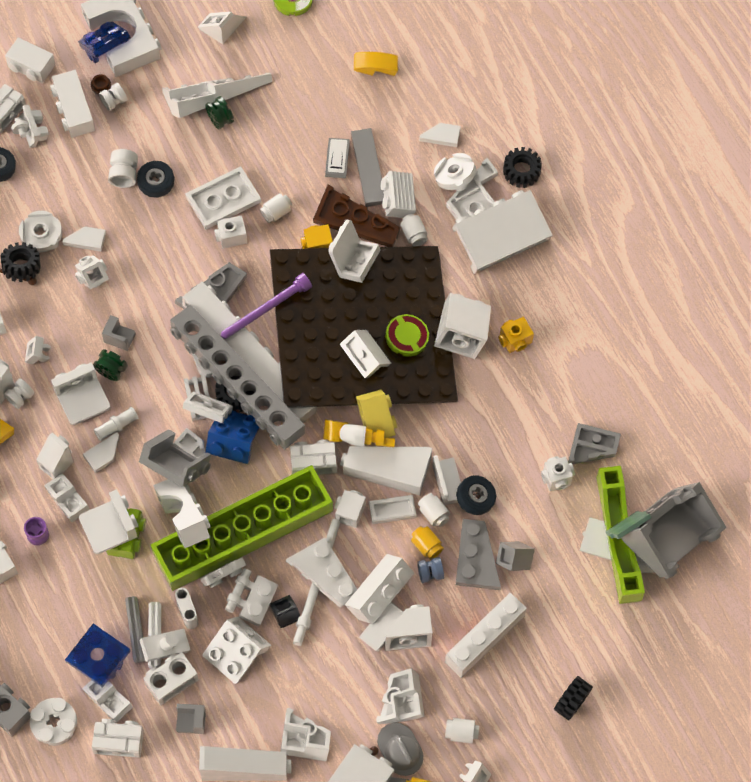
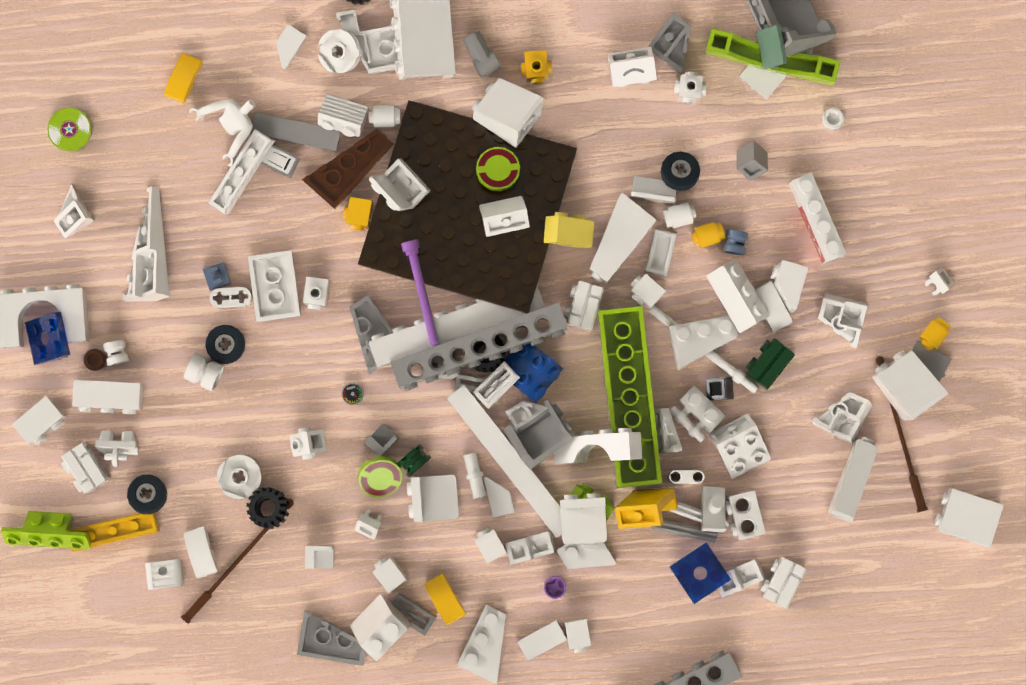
camera: 60 degrees left, 20 degrees up
(19, 393) = (407, 556): white wheel -> none
(47, 733) = (750, 624): white plate -> none
(78, 549) = (585, 555): none -> white wing
(83, 342) = (379, 476): none -> lime tile
(86, 238) = (264, 434): white tile -> none
(138, 570) = (645, 507): none -> yellow panel
(152, 296) = (352, 394): none -> black tile
(157, 423) = (507, 458): none -> white tile
(190, 718) = (789, 511): light grey panel -> none
(195, 170) = (231, 303): none -> white beam
(213, 152) = (217, 276): none -> sand blue tile
(219, 112) = (179, 254): dark green wheel -> none
(276, 208) = (306, 239): white brick -> none
(313, 135) = (241, 172): none -> white tile
(327, 644) = (769, 364): none -> dark green brick
(355, 113) = (233, 120): none -> white piece
(355, 434) = (581, 259): yellow piece -> none
(400, 748) = (886, 336): light grey piece -> none
(461, 730) = (894, 276): white brick -> none
(476, 558) = (737, 196): light grey wing -> none
(502, 292) = (484, 59): none -> light grey piece
(553, 415) = (632, 67): none -> white brick
(573, 698) = (907, 166): black tyre -> none
(588, 616) = (833, 119): none -> white tile

